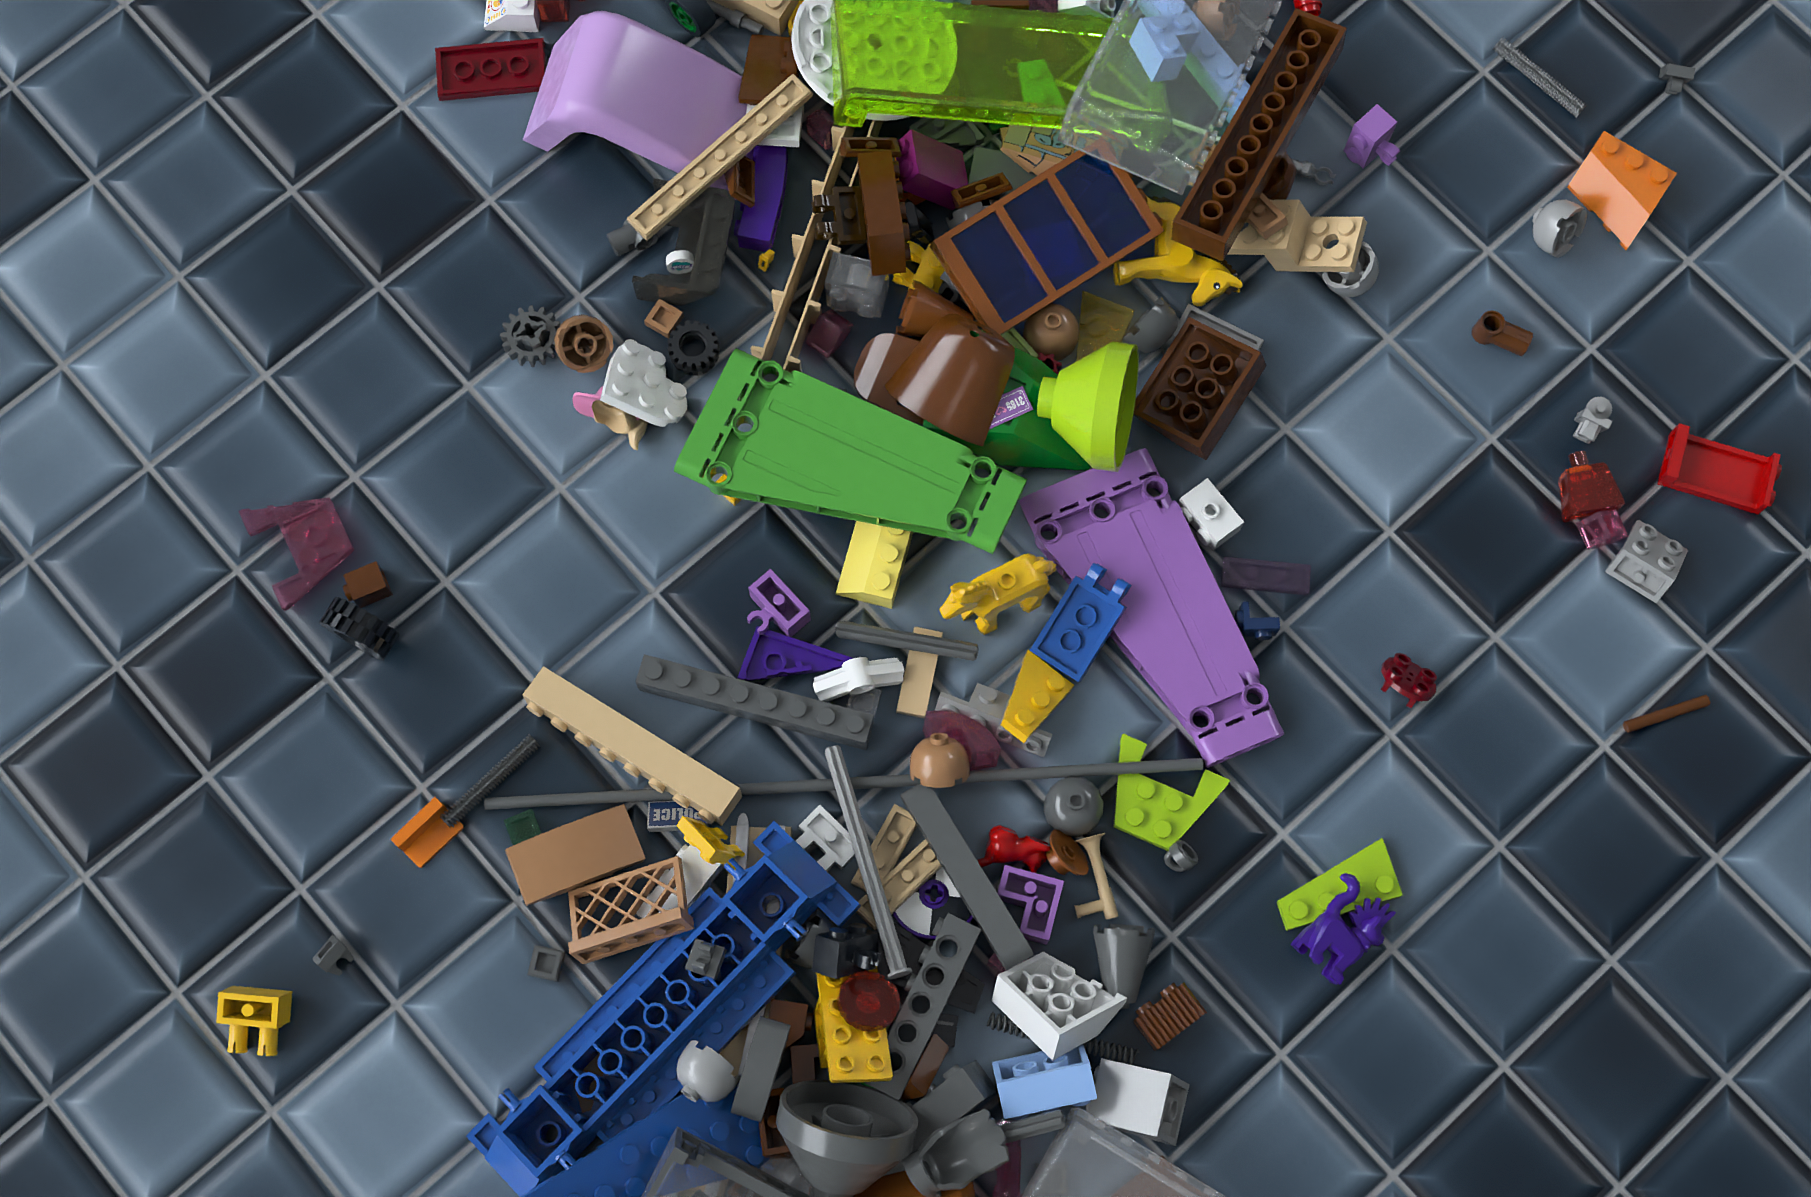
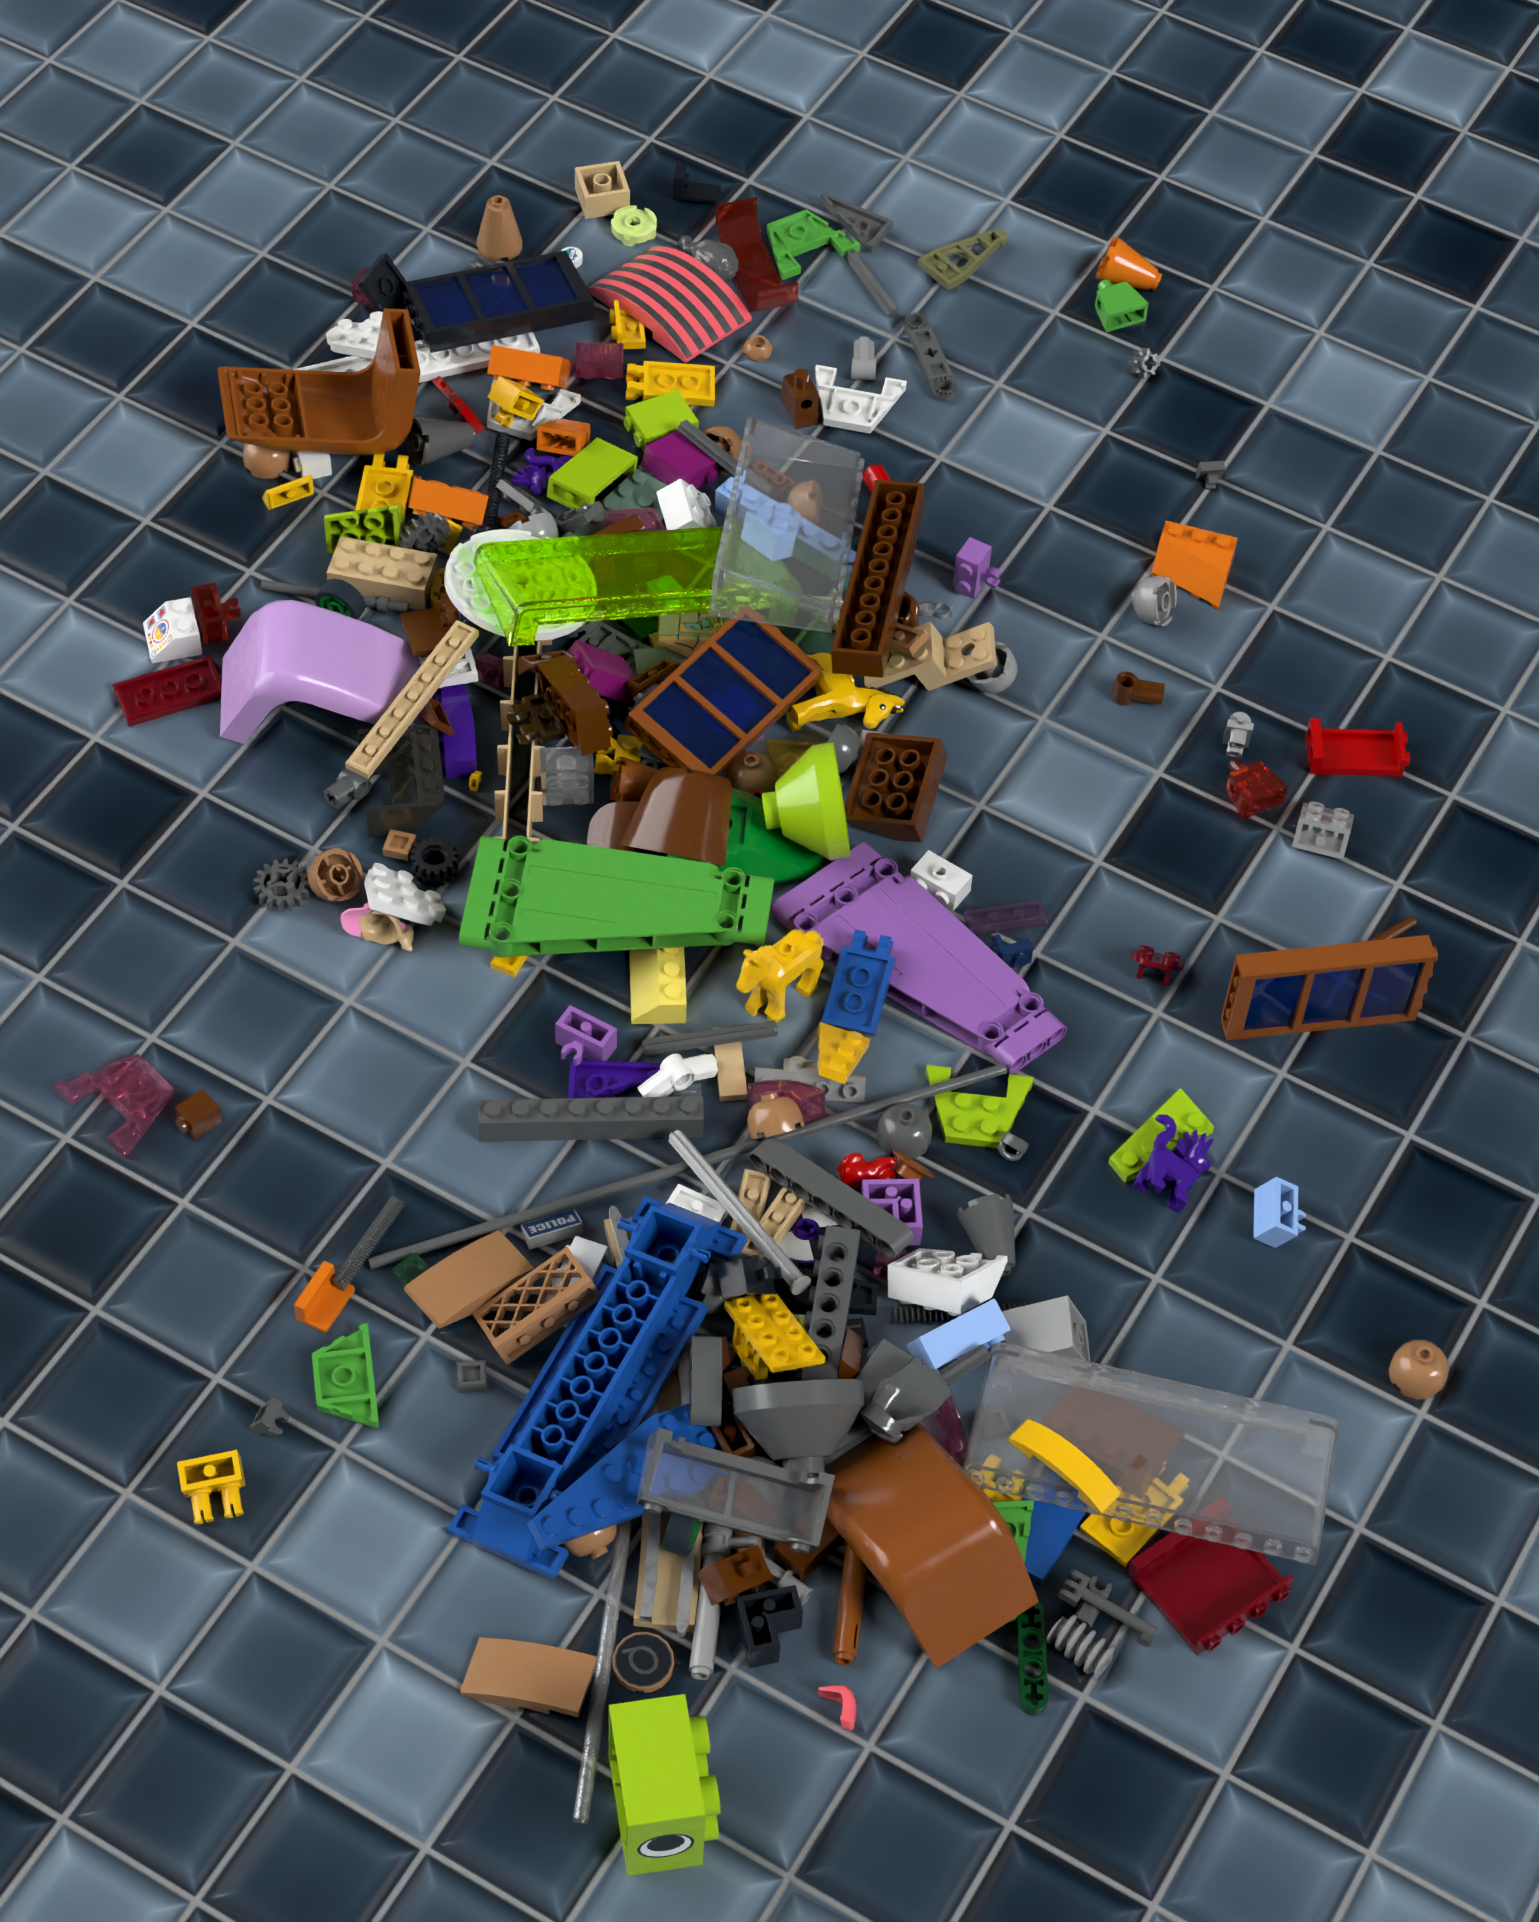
camera: 20 degrees left, 20 degrees down
(359, 628) = (206, 1143): black wheel -> none
(421, 931) = (346, 1379): none -> bright green wing
(632, 746) = (492, 1177): tan brick -> none
(679, 261) = (400, 793): white tile -> none
(705, 959) = (627, 1301): dark grey tile -> none
(705, 1074) = (659, 1392): light grey cylinder -> none
(708, 841) = (592, 1228): yellow plate -> none
(828, 333) = (552, 822): clear pink brick -> none
(868, 1001) = (780, 1310): clear red tile -> none
(1011, 406) = (740, 827): medium lavender sticker -> none
(1106, 901) = (960, 1197): tan piece -> none
(1168, 1016) = (1048, 1268): reddish brown brick -> none
(1432, 1024) = (1277, 1212): none -> light blue brick
(1539, 77) = (1097, 500): dark grey axle -> none
(1581, 778) = (1327, 987): none -> window
(1602, 529) = (1276, 814): clear pink brick -> none

